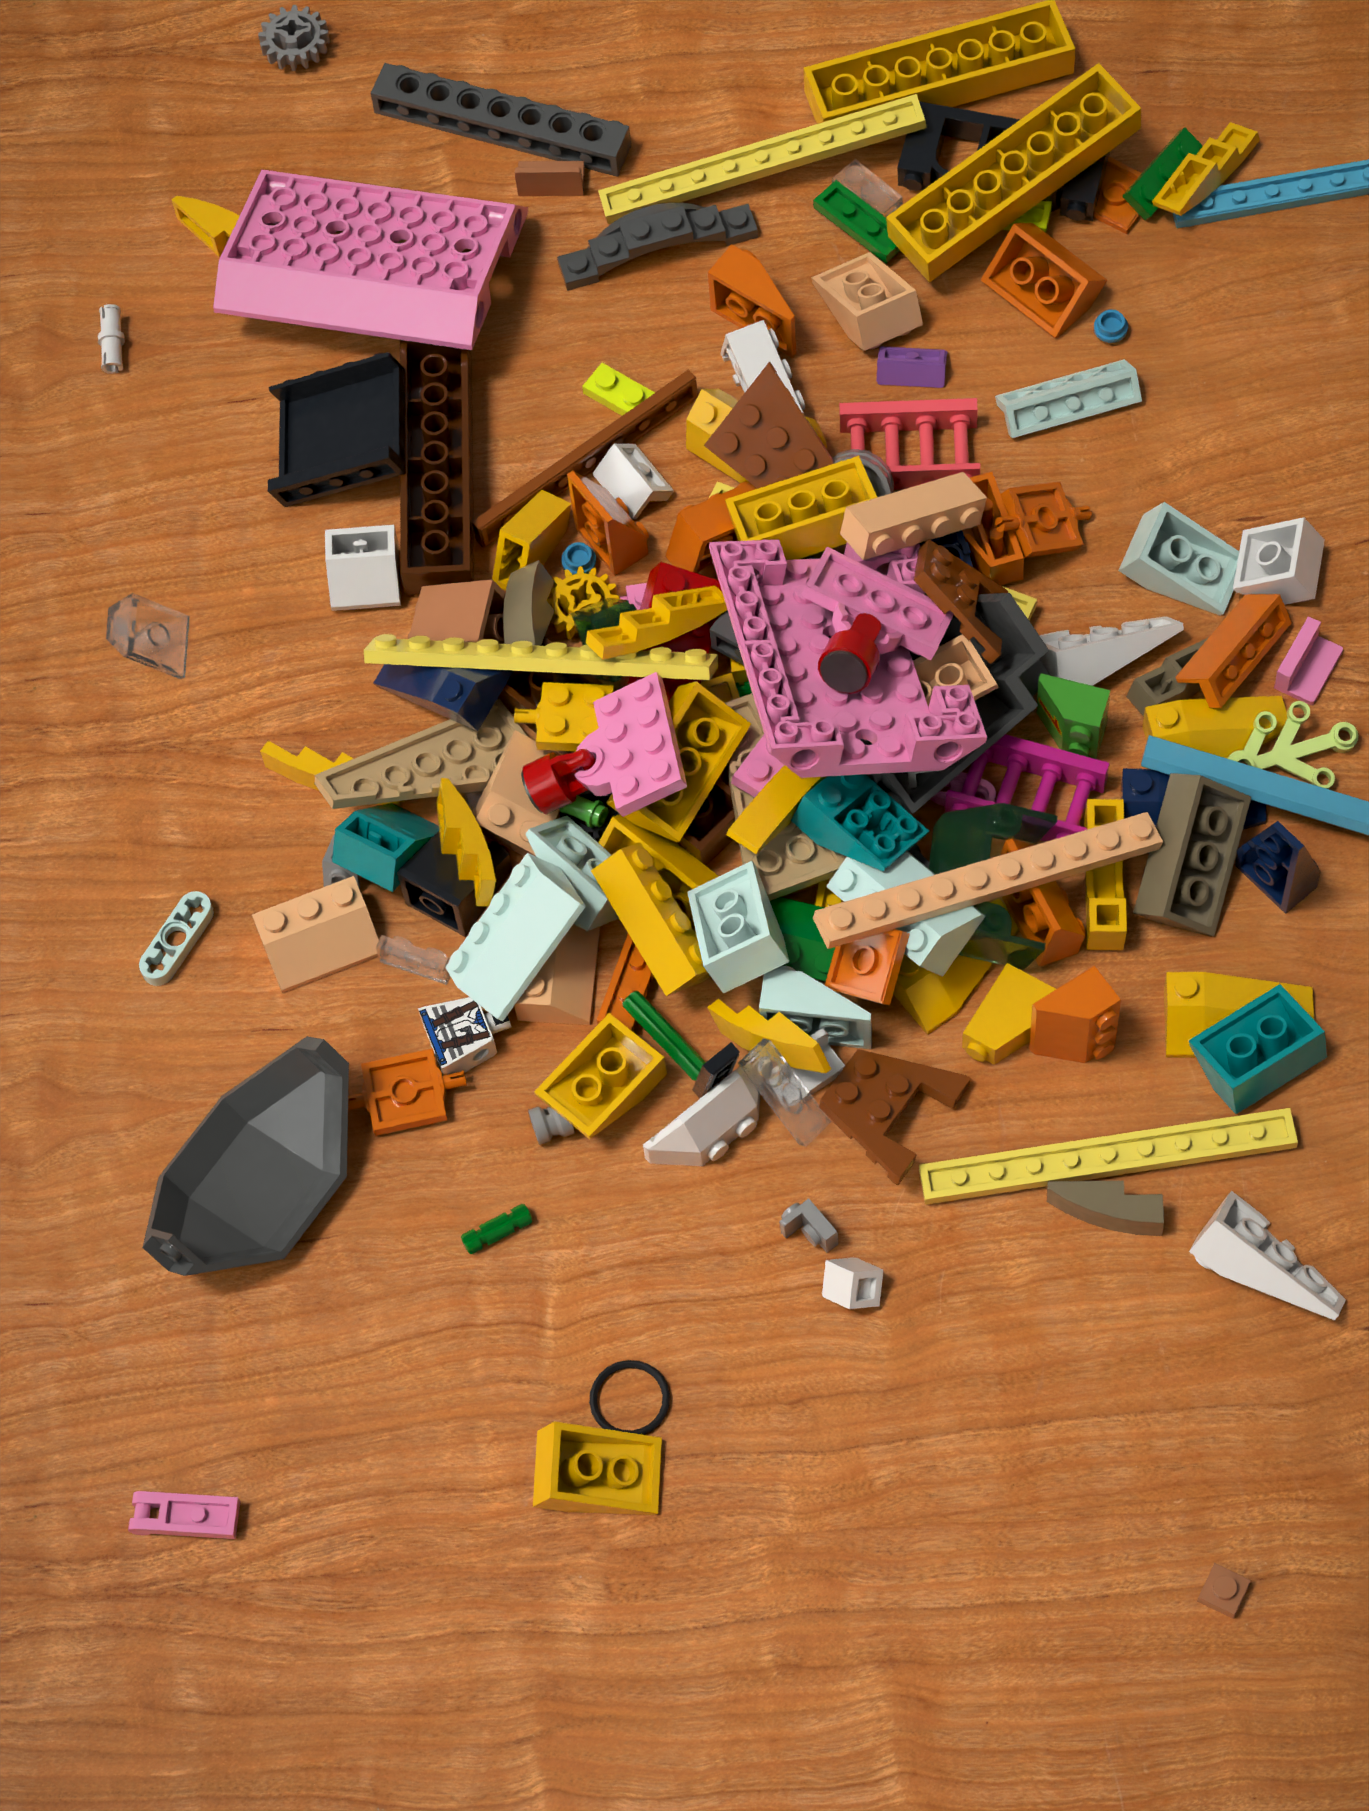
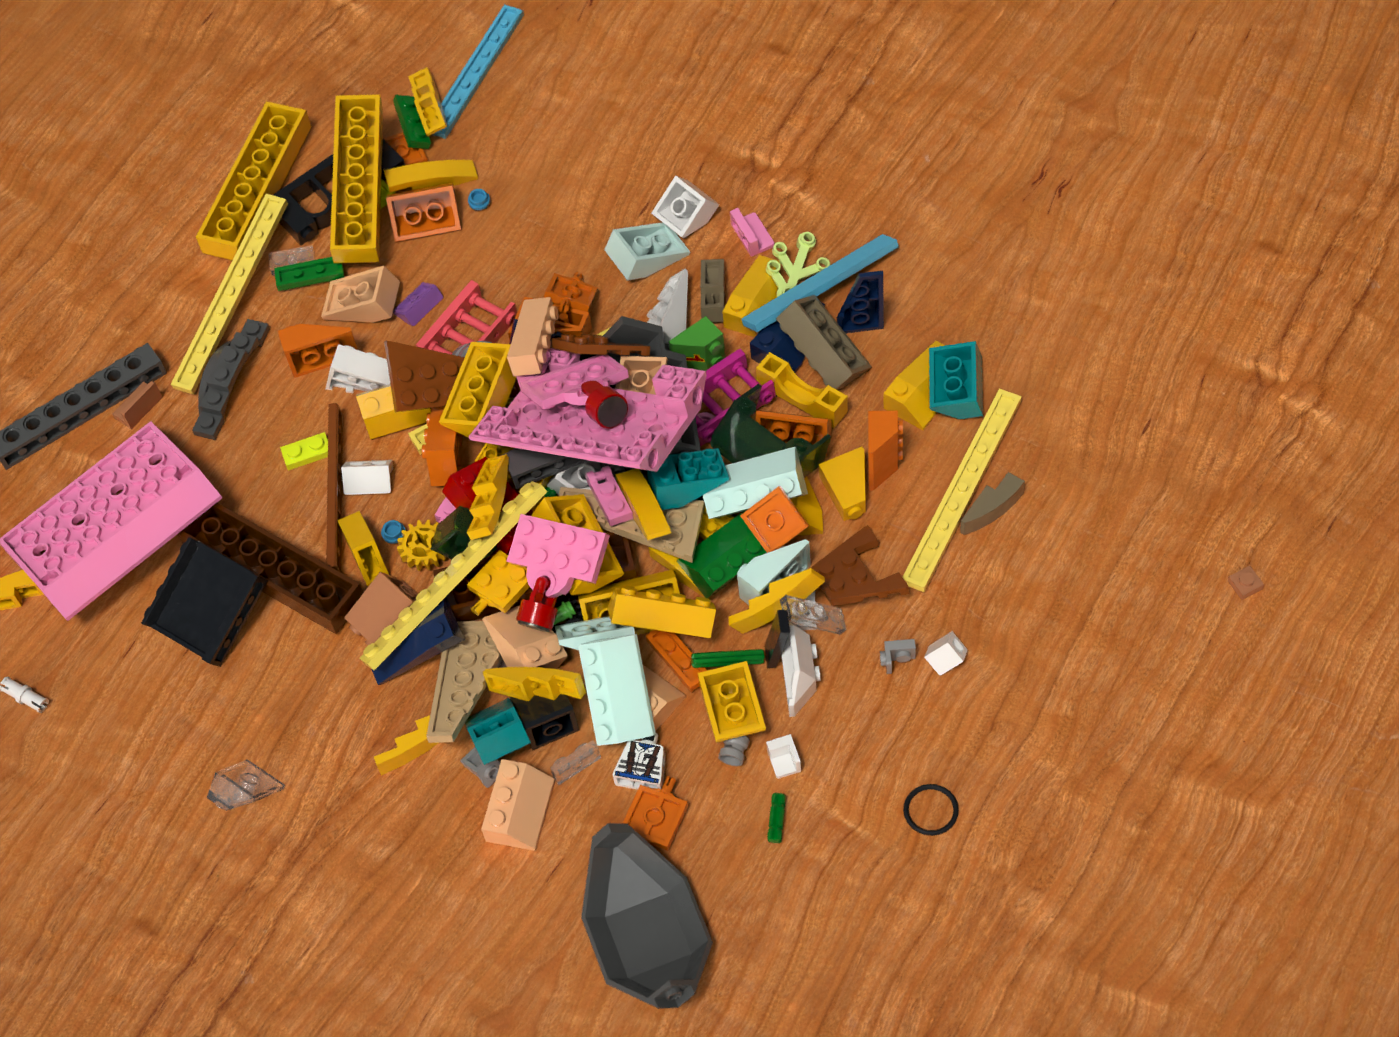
camera: 55 degrees left, 5 degrees down
(154, 955) = (444, 882): light aqua beam -> none
(363, 567) = (302, 642): white slope -> none
(526, 604) = (406, 567): dark tan slope -> none
(582, 1184) = (783, 756): none -> white panel
(596, 1470) = (964, 850): yellow slope -> none
(606, 524) = (389, 501): orange slope -> none
(736, 928) = (704, 571): light aqua slope -> none
(986, 880) = (775, 435): light nougat plate -> none
(1069, 398) = (504, 242): light aqua fence -> none
(1102, 249) = (430, 174): none -> yellow slope
(1236, 647) = (718, 253): orange panel -> none
(1246, 1252) = (1062, 459): white wedge -> none

